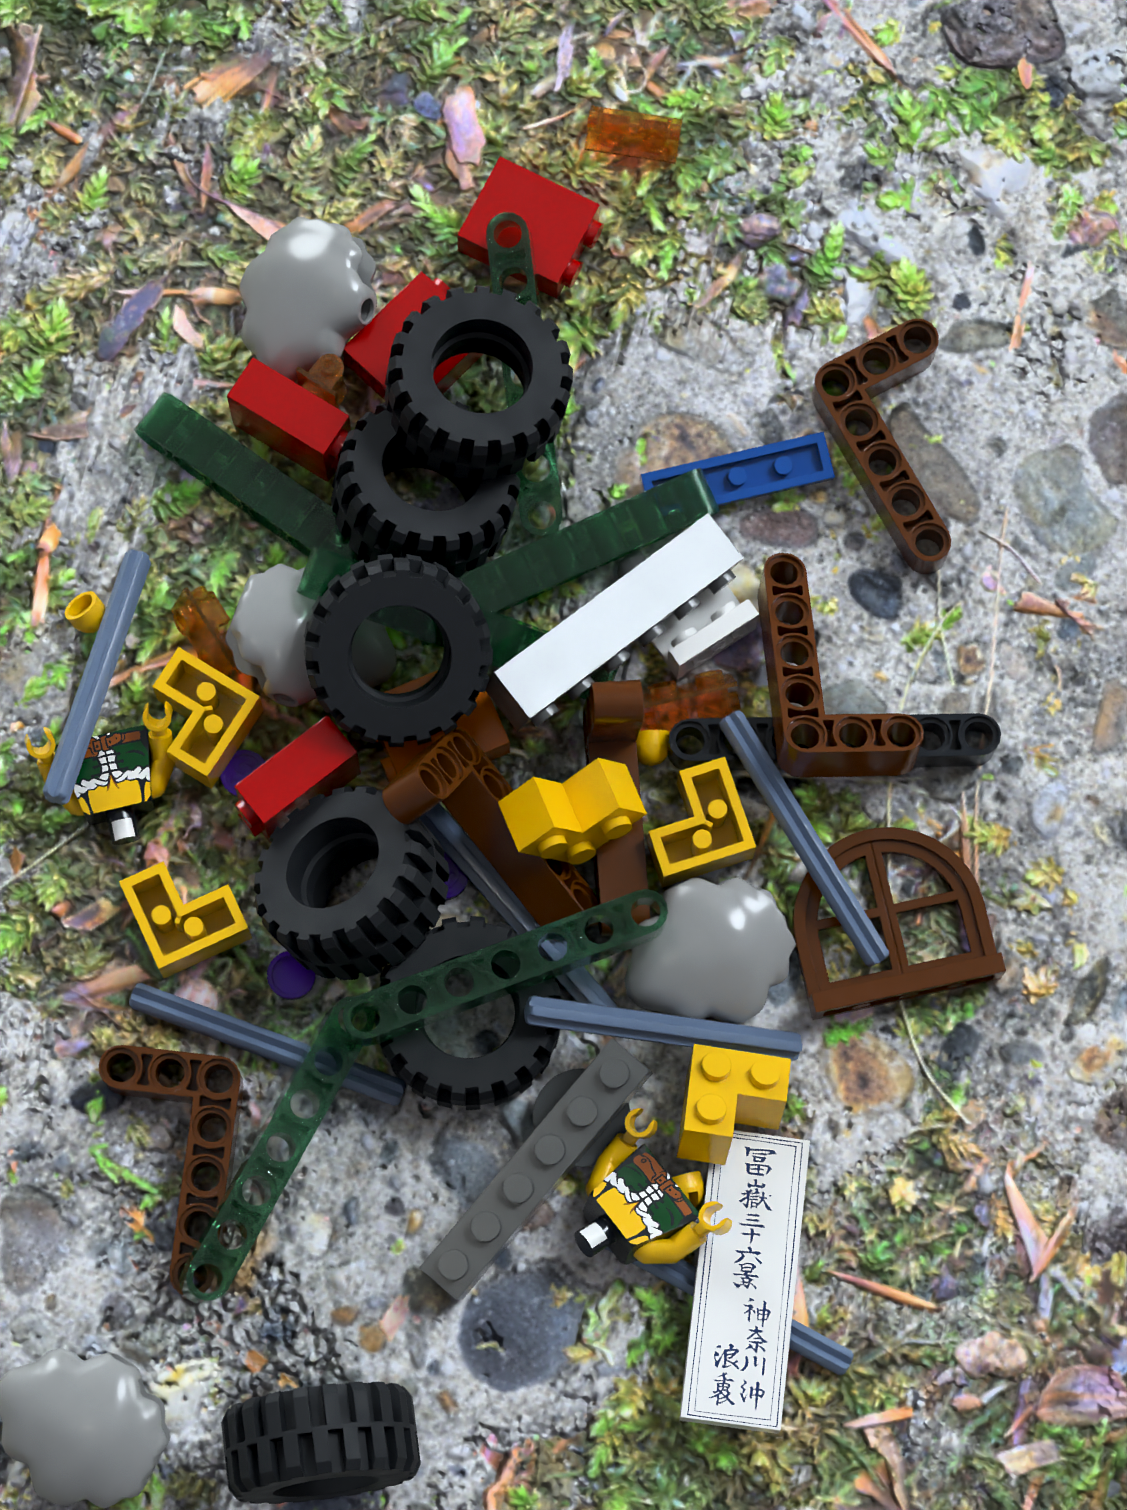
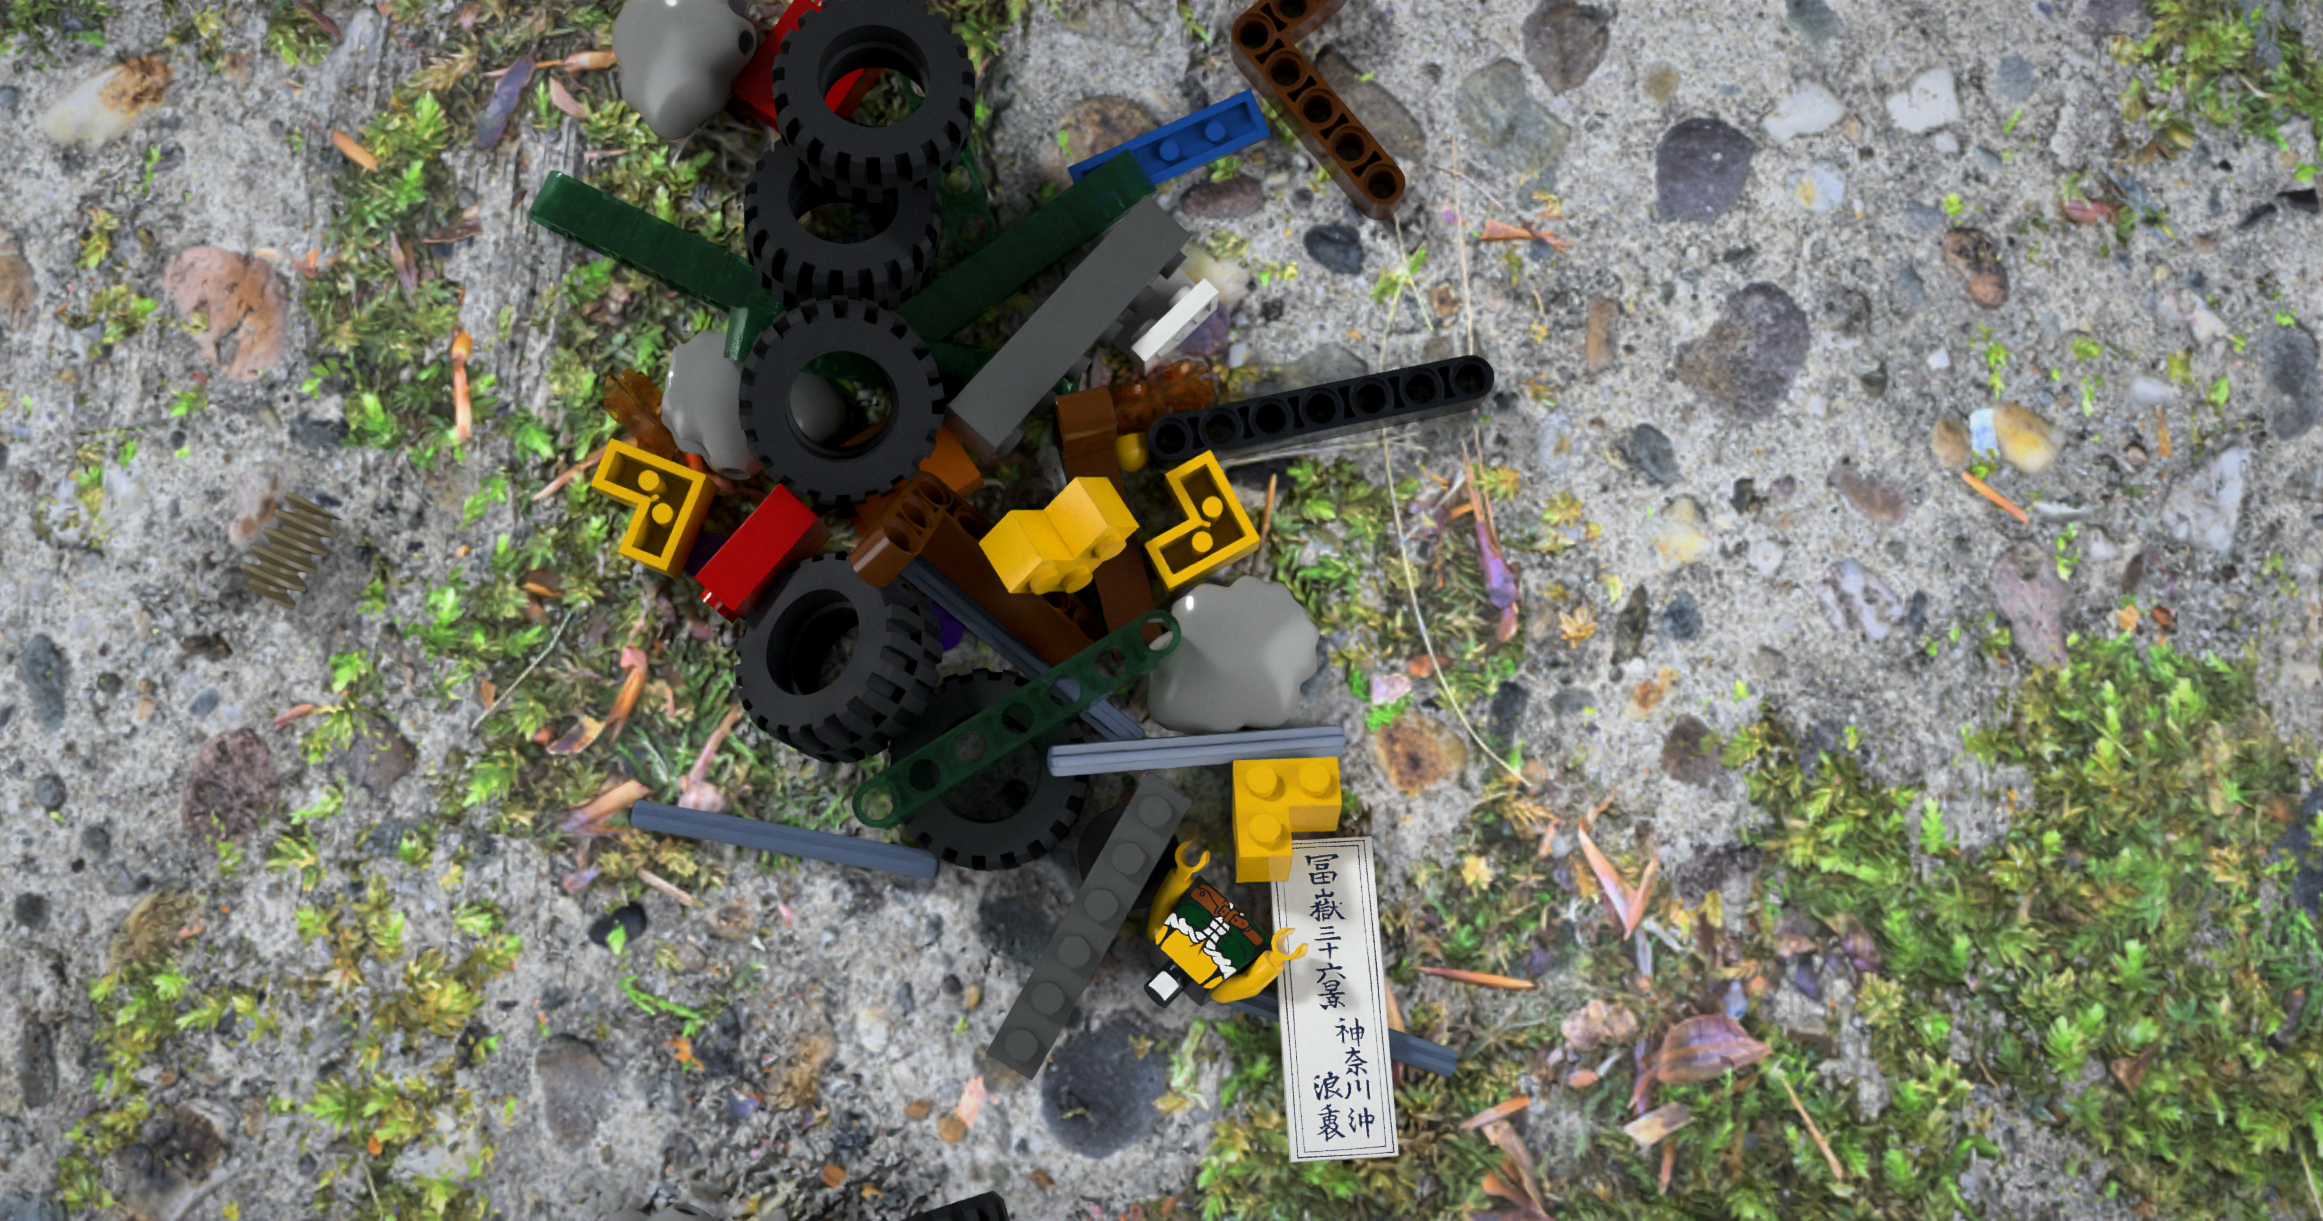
camera: 10 degrees left, 5 degrees up
(85, 612) = (512, 418): yellow hinge -> none
(96, 677) = (531, 487): sand blue axle -> none
(118, 774) = (565, 585): torso -> none
(179, 932) = (664, 739): yellow brick -> none
(199, 1153) = (731, 970): reddish brown beam -> none
(261, 1167) = (795, 977): clear green beam -> none
(289, 418) = (683, 172): red brick -> none
(289, 978) = (794, 766): dark purple piece -> none
(325, 379) = (717, 134): clear orange hinge -> none
(692, 1186) = (1256, 909): yellow hinge -> none
(802, 685) = (1242, 271): reddish brown beam -> none
(804, 838) = (1308, 520): sand blue axle -> none
(902, 980) = (1436, 647): reddish brown window -> none

